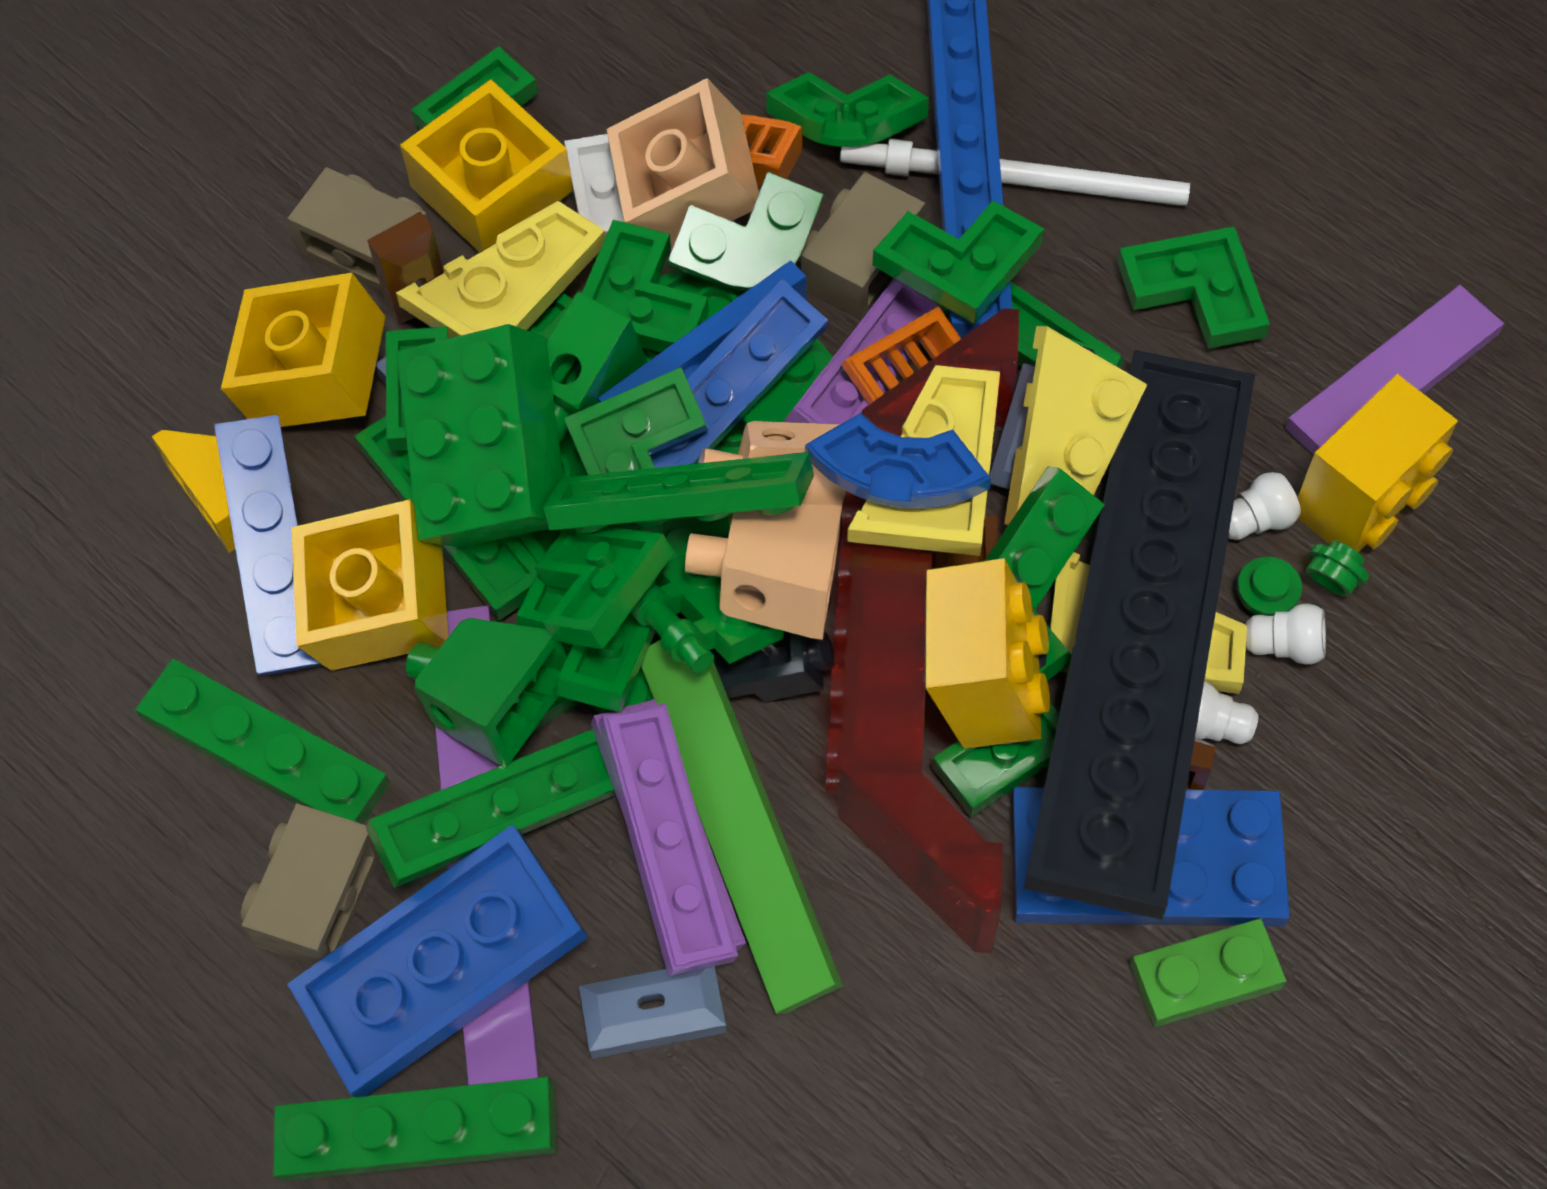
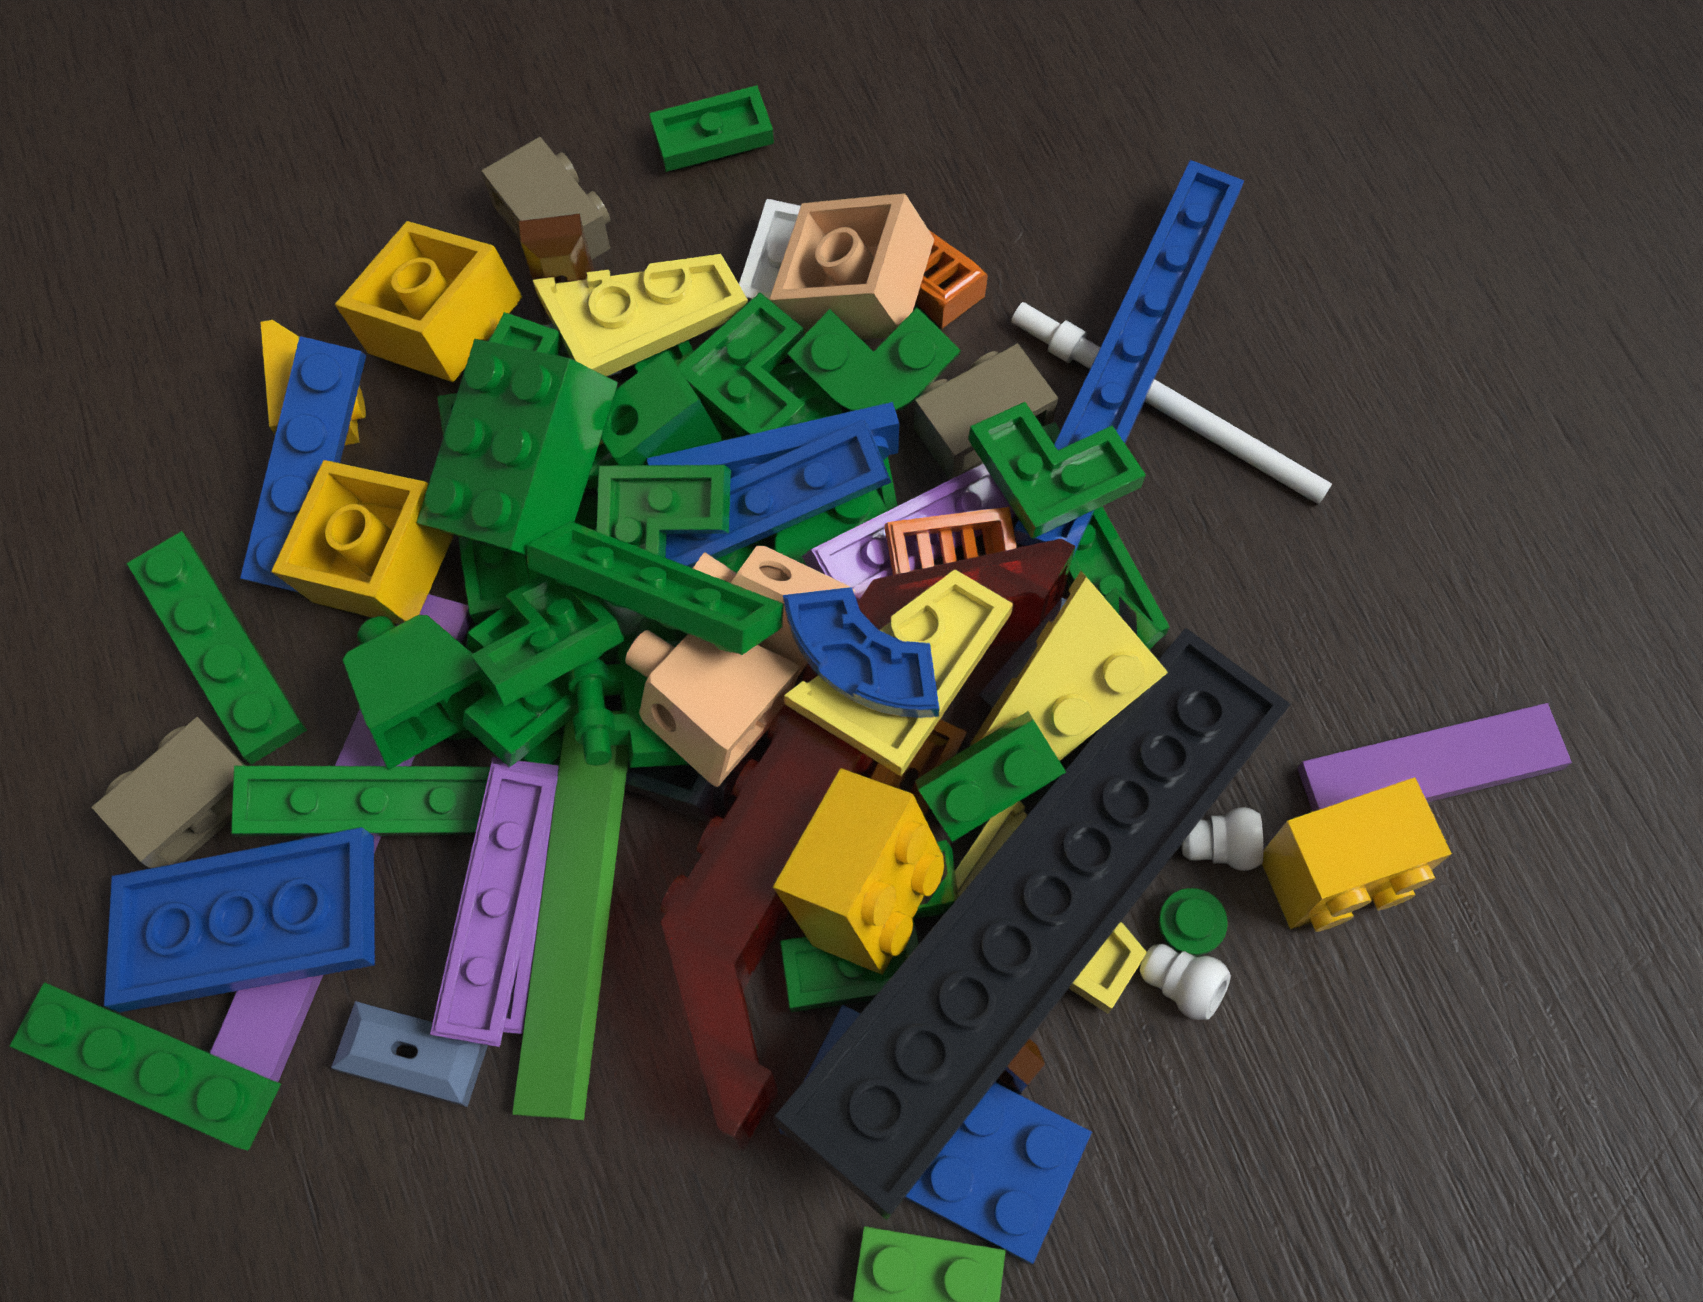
camera: 25 degrees right, 5 degrees up
(486, 165) = (683, 192): yellow brick -> none
(849, 119) = (1037, 286): green plate -> none
(1201, 268) = (1301, 578): green plate -> none
(1224, 718) = (1074, 1030): white piece -> none
(1337, 568) = (1268, 935): green plate -> none

